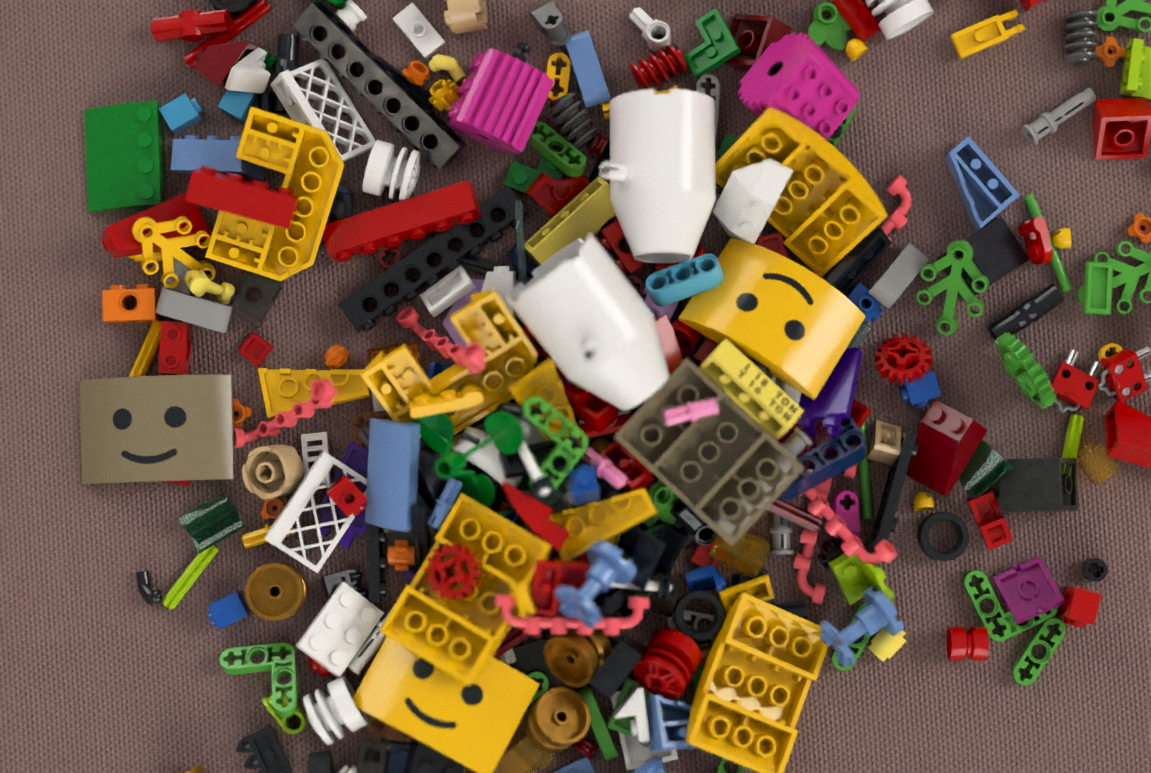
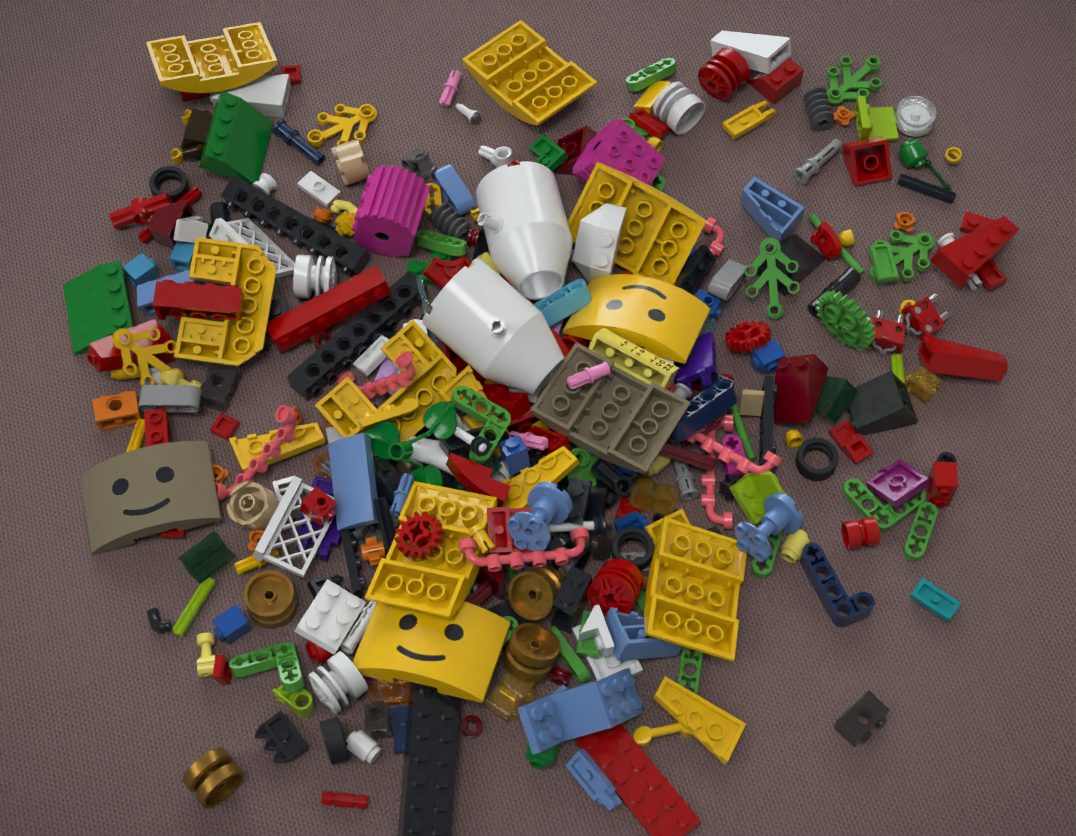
camera: 10 degrees left, 25 degrees down
(196, 651) = (206, 662): none -> light yellow leg
(210, 663) = (222, 670): none -> red tile
(916, 696) = (832, 584): none -> dark blue beam
(1029, 740) = (935, 600): none -> teal plate

